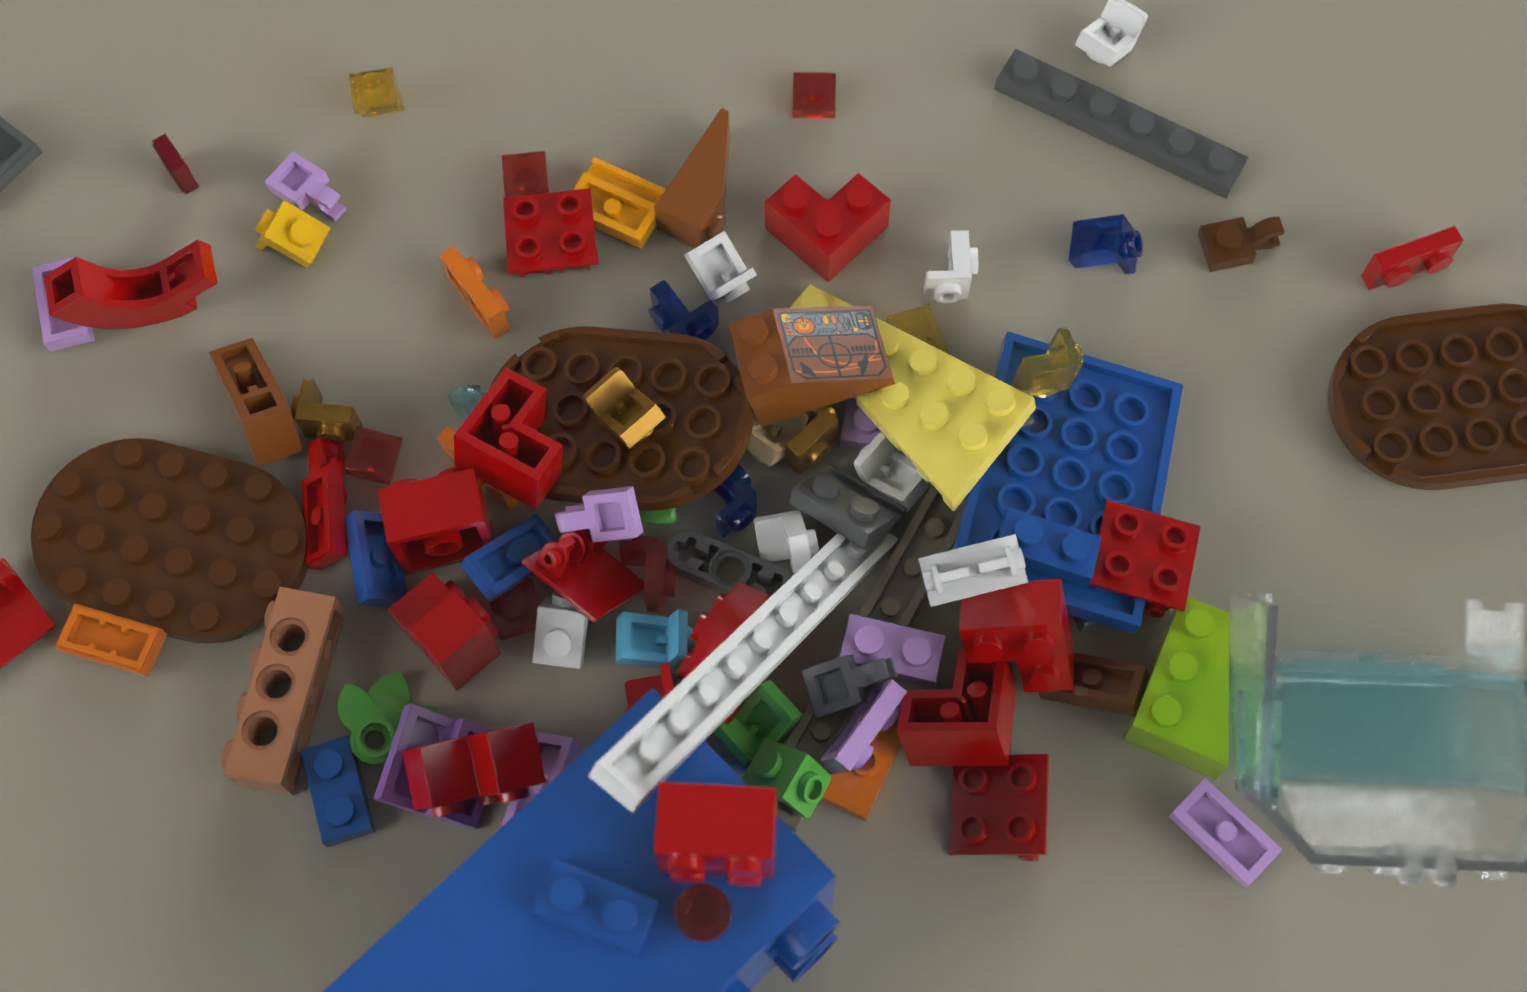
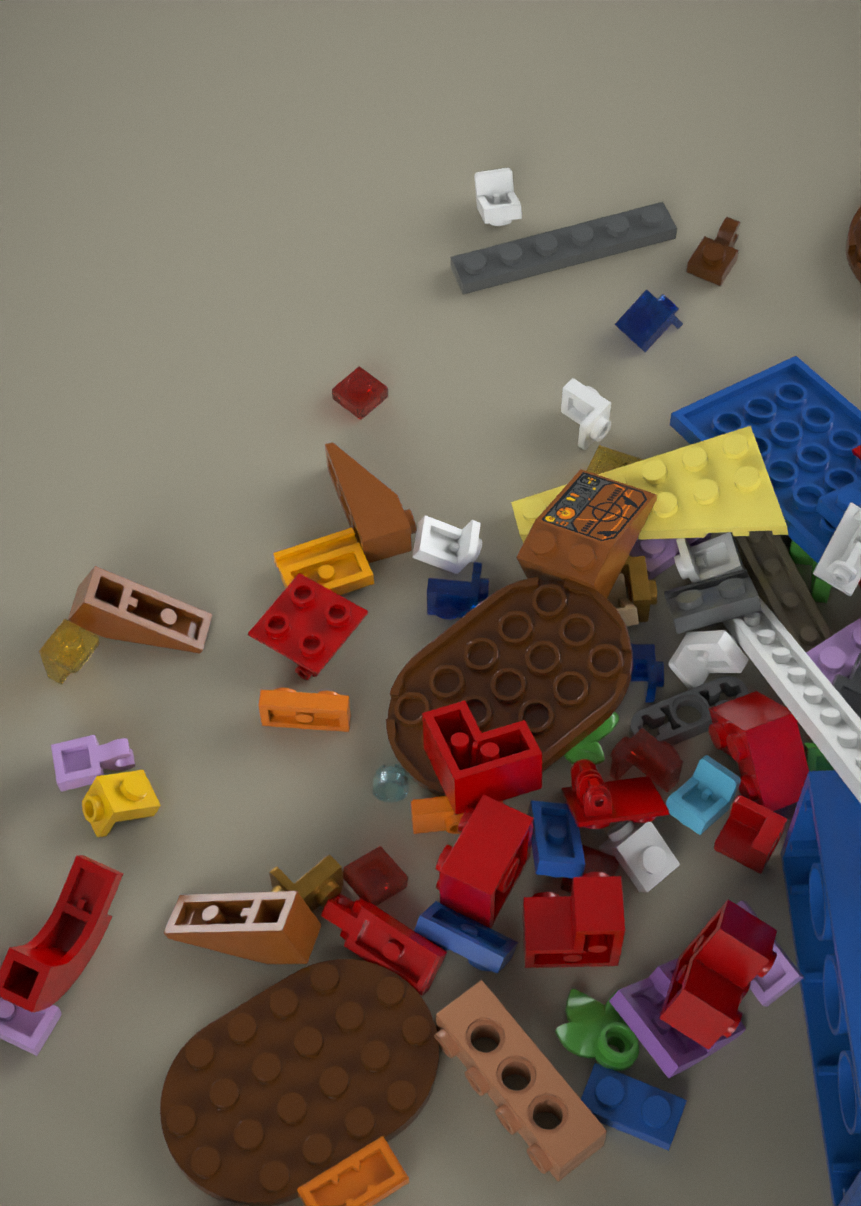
camera: 50 degrees left, 10 degrees down
(455, 114) = (137, 614): none -> dark orange slope
(525, 174) = (238, 609): clear red plate -> none
(606, 512) = (593, 742): lavender plate -> none
(623, 408) = (525, 668): pearl gold bracket -> none
(824, 231) = (475, 463): red brick -> none
(1053, 371) = (731, 398): clear yellow bracket -> none
(1400, 262) = (818, 188): red plate -> none

